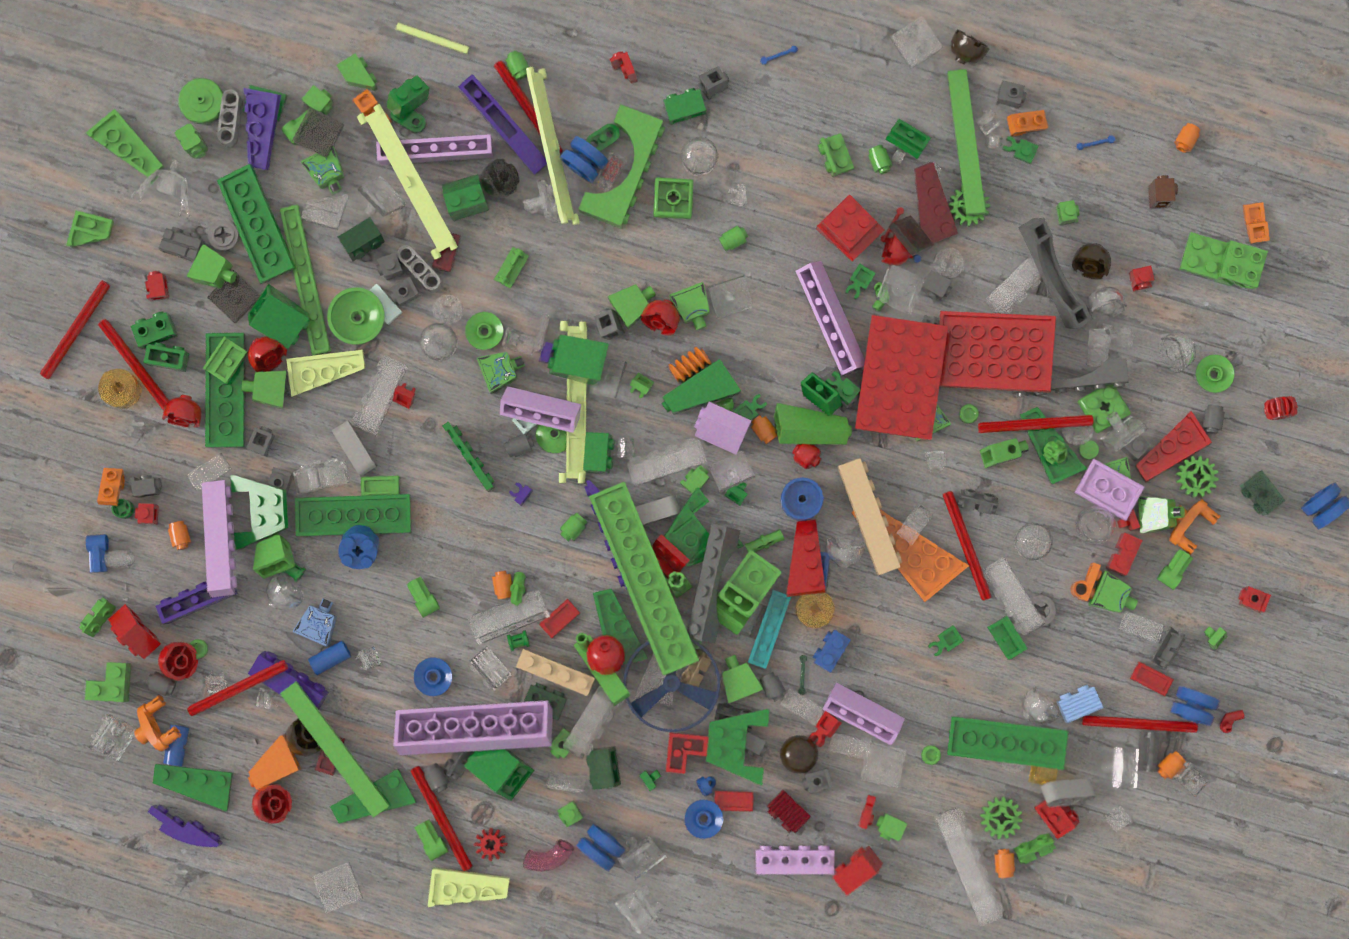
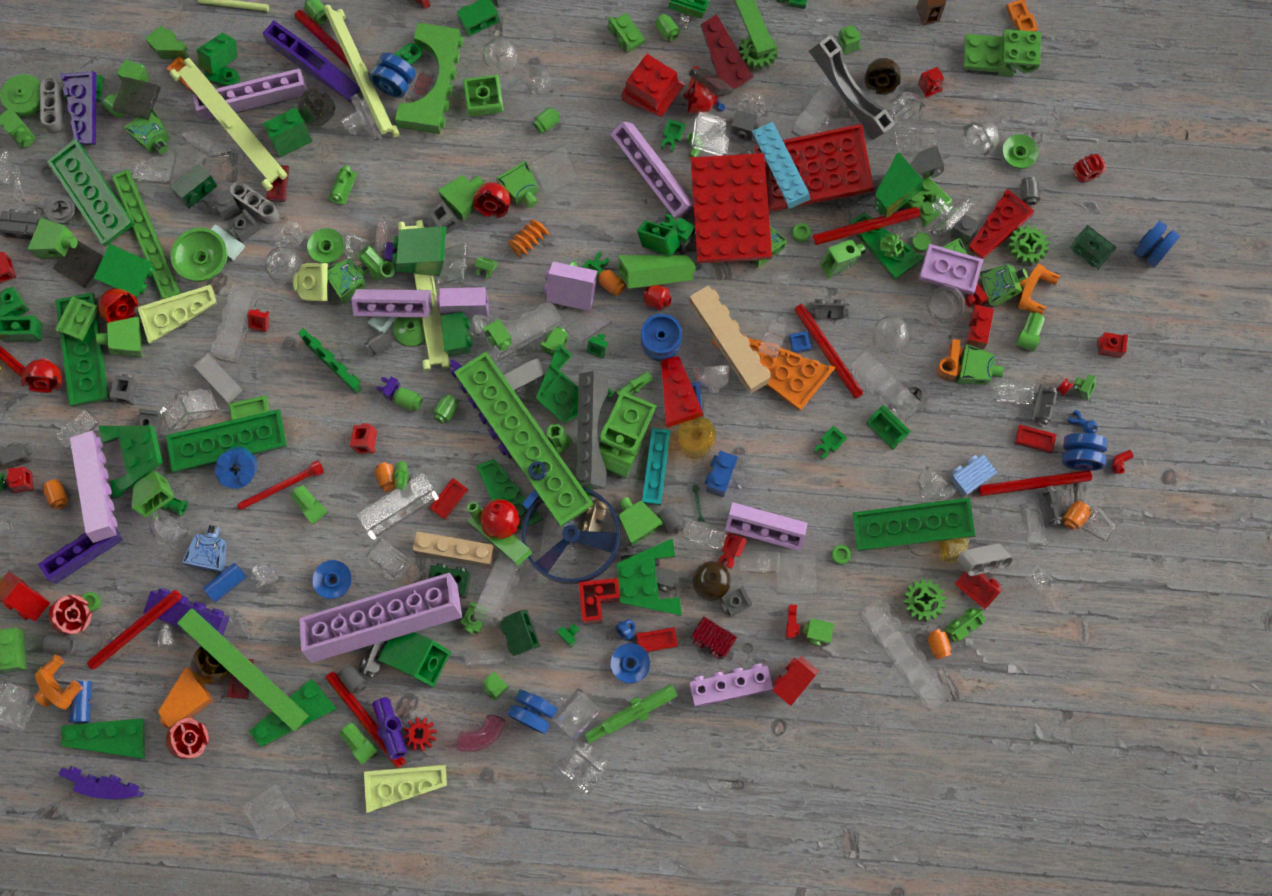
camera: 20 degrees left, 10 degrees down
(433, 562) = (314, 469): none -> red piece
(461, 823) = (391, 737): none -> dark purple piece
(464, 368) = (311, 281): none -> yellowish green tile
(483, 537) = (363, 439): none -> red brick
(518, 640) = (411, 527): green bush -> none
(531, 363) = (376, 264): none -> bright green piece
(537, 509) = (407, 399): none -> bright green brick
(611, 423) = (466, 300): none -> lavender brick
(639, 467) = (498, 335): none -> bright green brick
(639, 641) = (530, 500): none -> blue tile
(657, 616) = (531, 472): none -> dark blue bush
(668, 556) = (544, 414): red bracket -> none
(702, 865) = (638, 709): none -> bright green piece
(706, 386) = (551, 248): green slope -> none
(940, 530) = (799, 342): none -> blue tile
(962, 342) = (781, 165): none -> medium azure piece
(1072, 397) = (897, 186): none -> green slope
(1194, 633) = (1064, 387): none -> red bush
(1206, 676) = (1088, 426): none -> blue arm

